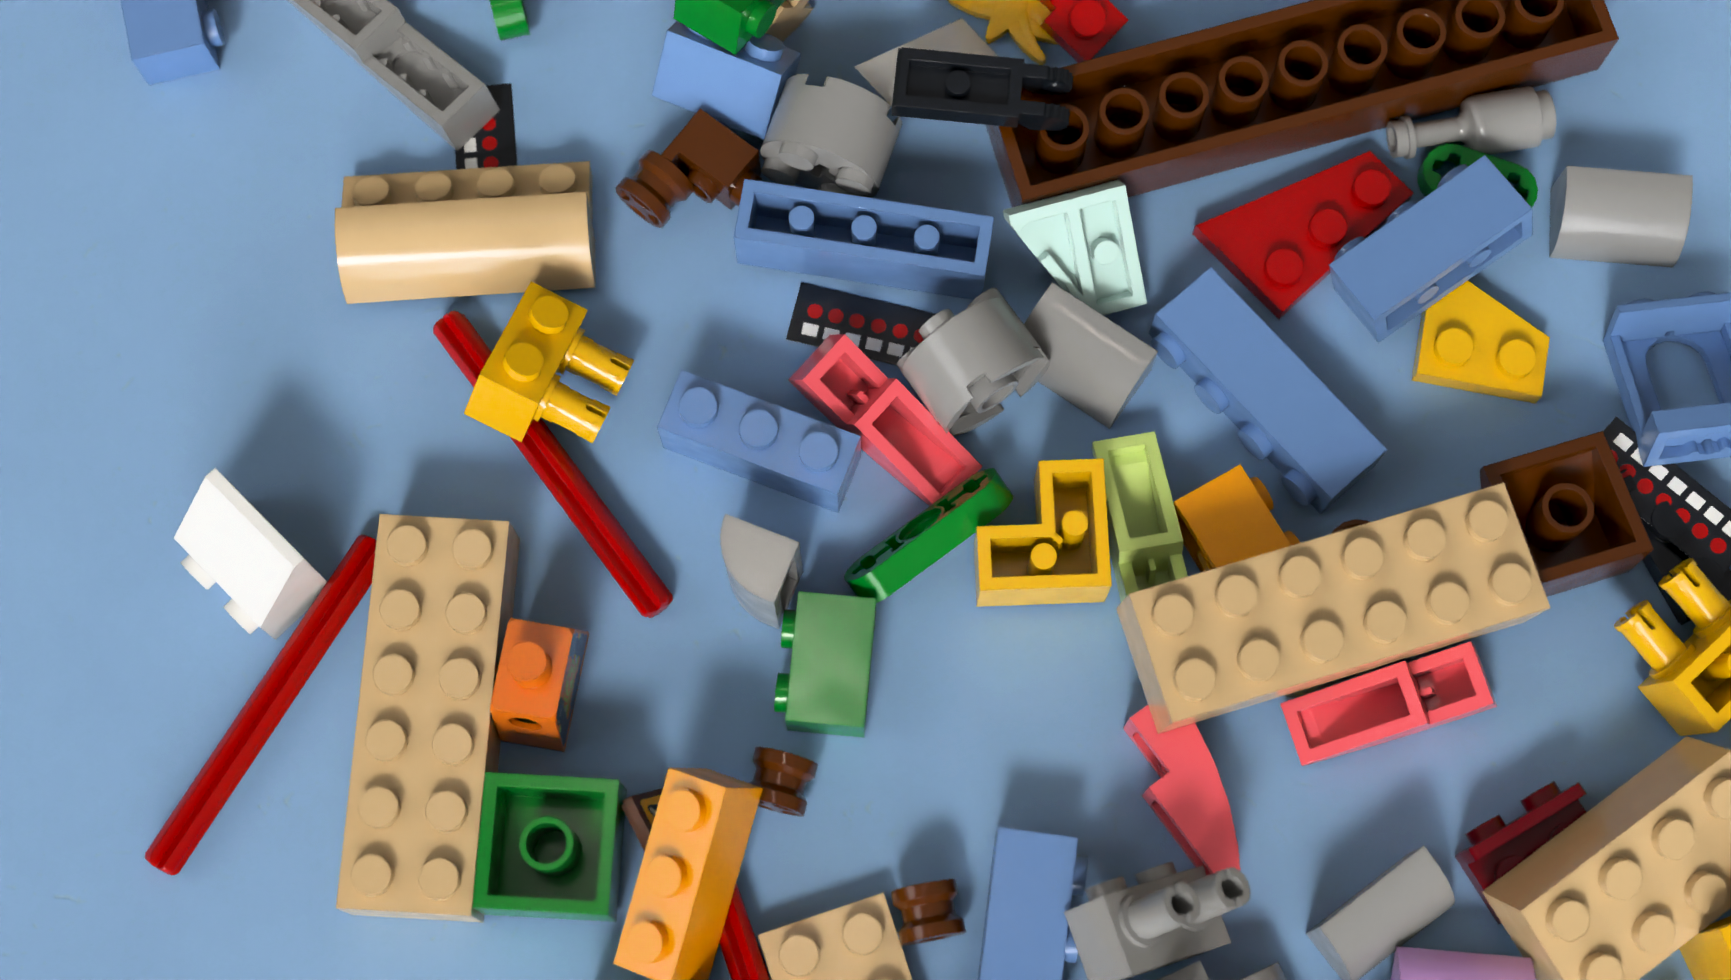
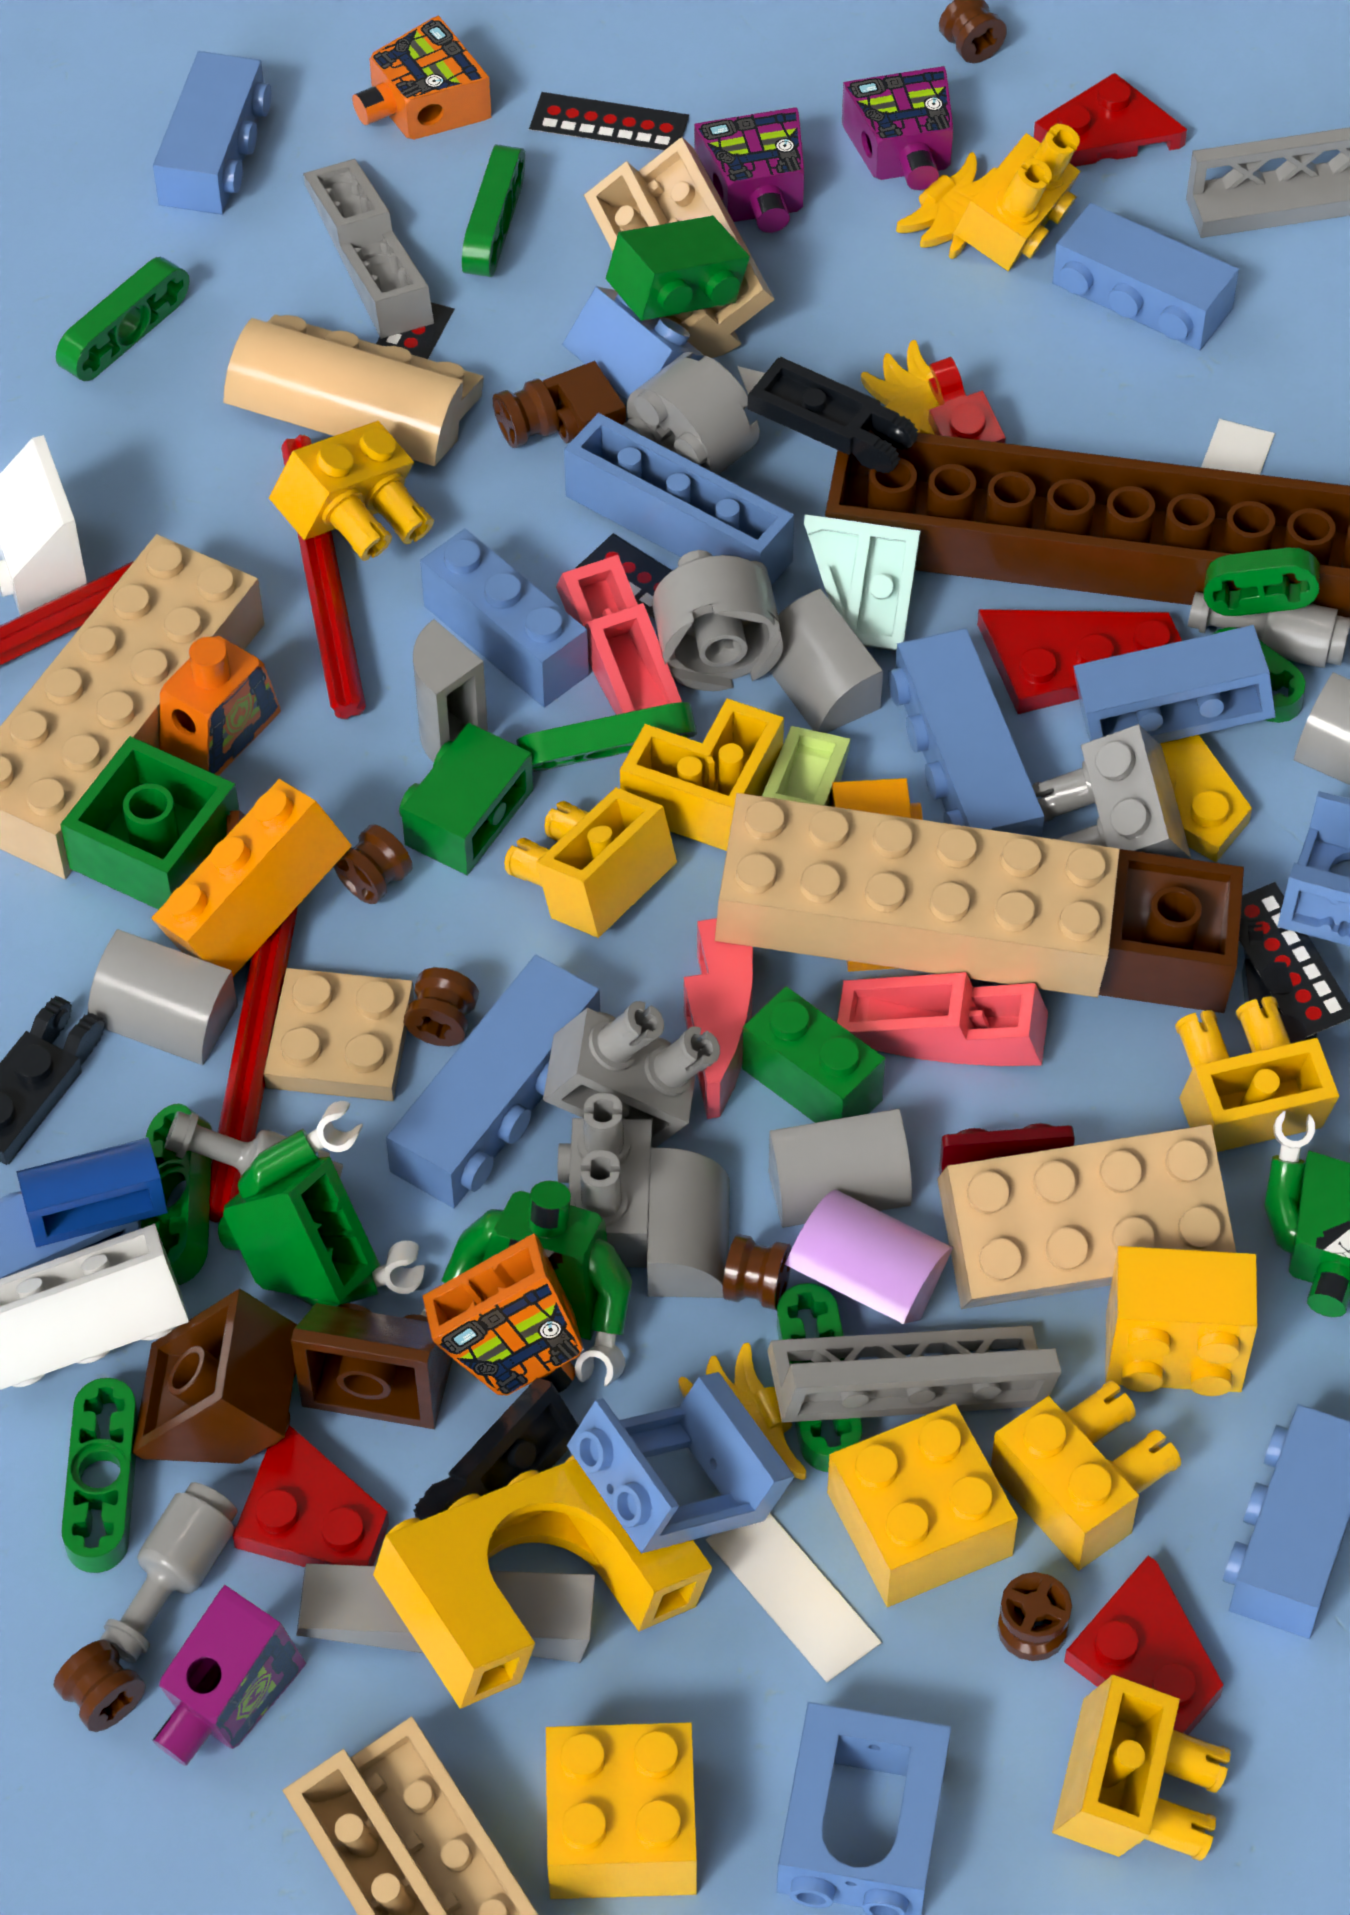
camera: 25 degrees right, 20 degrees down
(193, 249) = (122, 318): none -> green beam
(1003, 687) = (600, 859): none -> yellow brick
(1305, 813) = (811, 1060): none -> green brick
(1461, 395) = (1131, 792): none -> light grey brick
(1464, 98) = (1262, 581): none -> green beam

